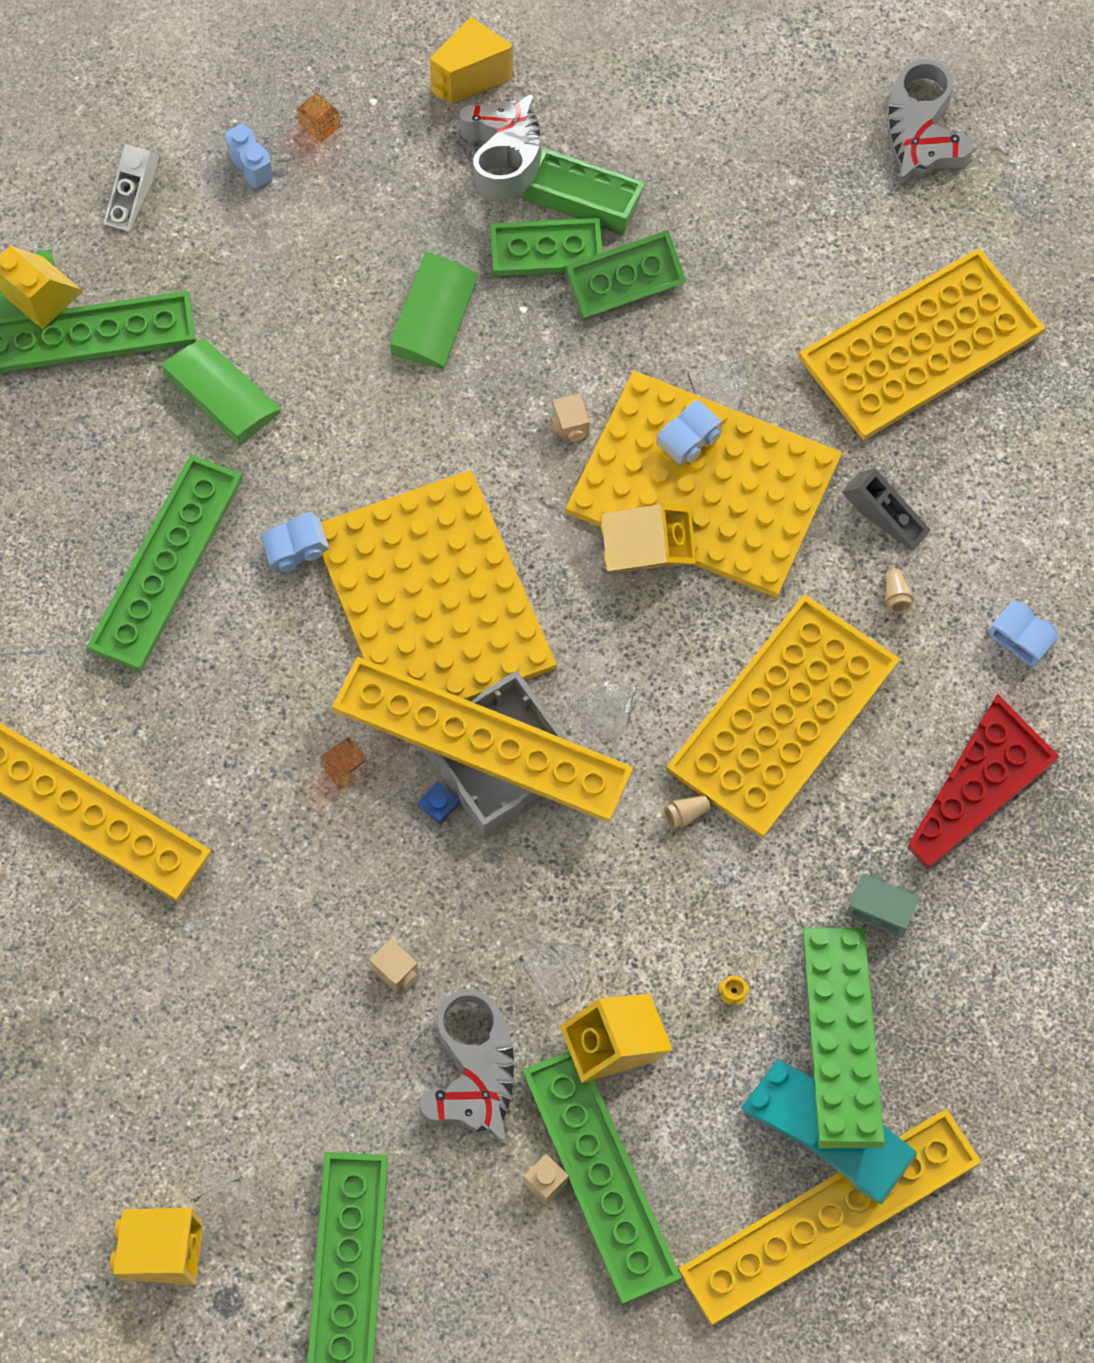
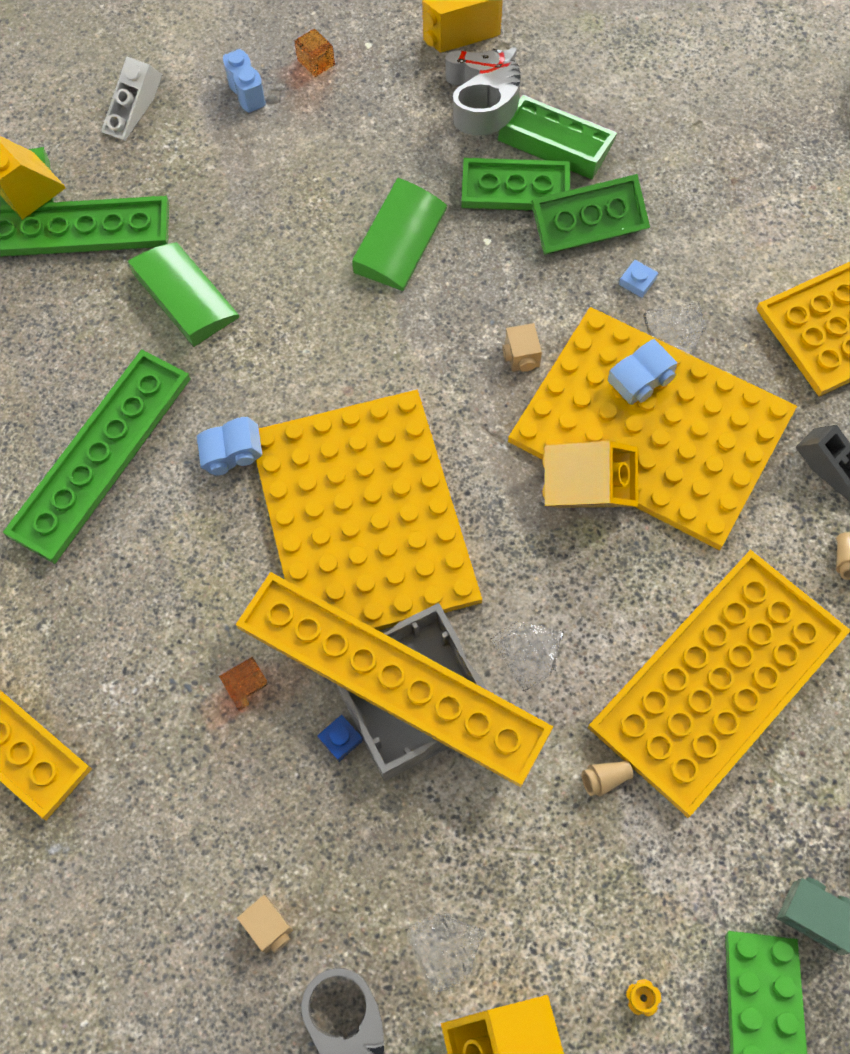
camera: 10 degrees right, 0 degrees up
(679, 336) = (638, 278): none -> light blue plate

